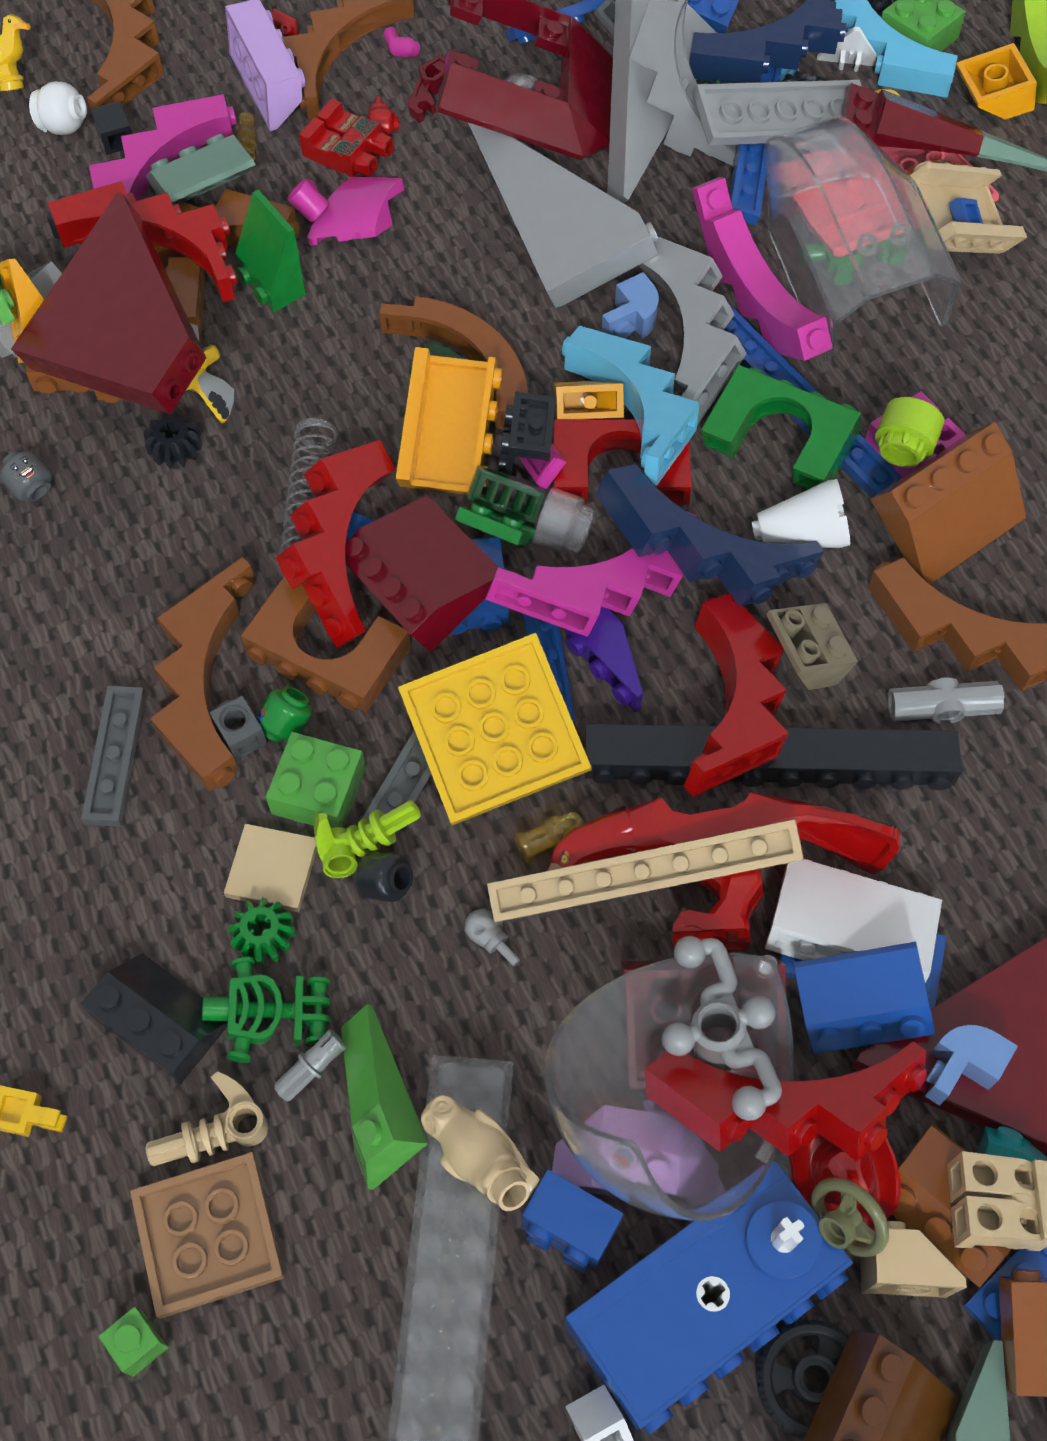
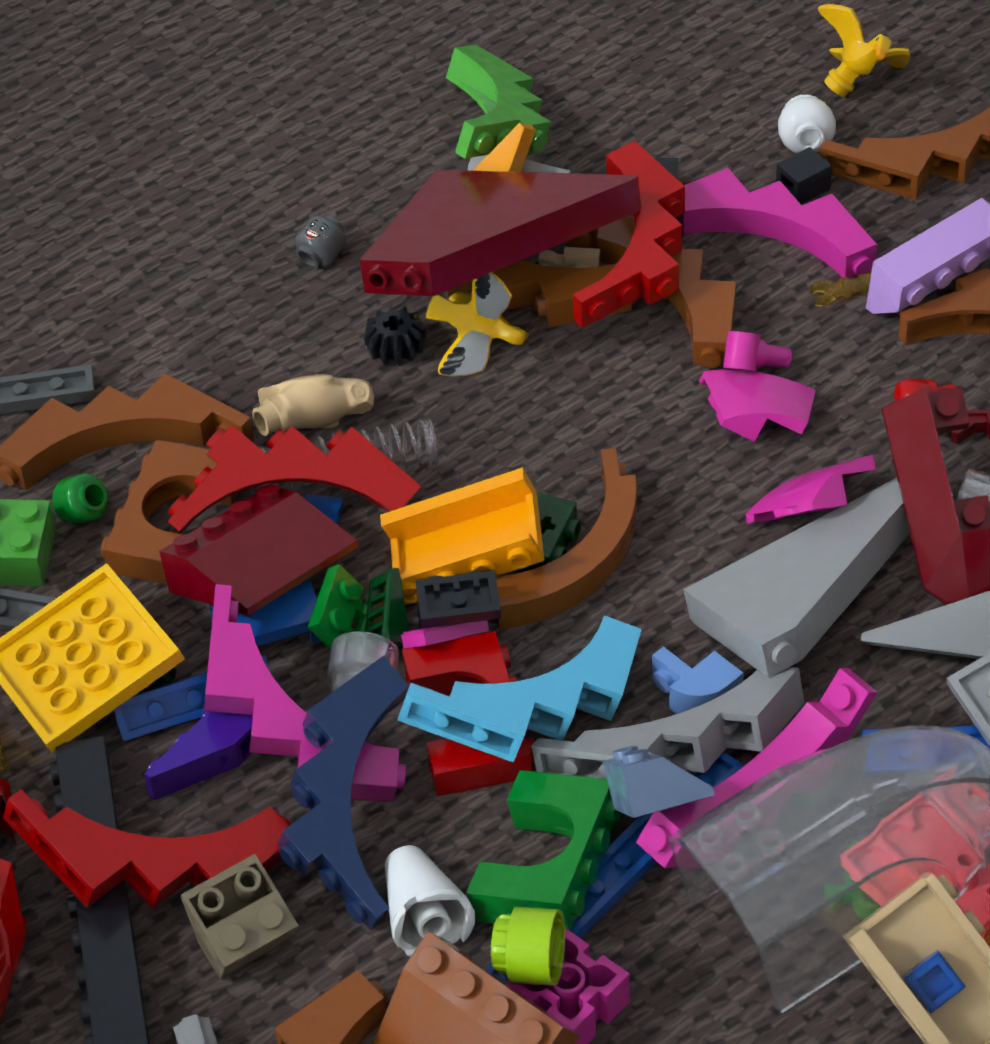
camera: 80 degrees right, 15 degrees down
(200, 169) = (753, 253): sand green slope -> none
(233, 515) = (311, 402): none -> tan animal
(241, 740) = (60, 463): dark grey brick -> none
(269, 255) = (644, 342): green slope -> none
(345, 141) = (864, 374): red hips -> none
(469, 191) = (809, 492): none -> dark pink slope
(588, 400) = (533, 647): light orange slope -> none
(775, 329) = (649, 782): none -> sand blue slope

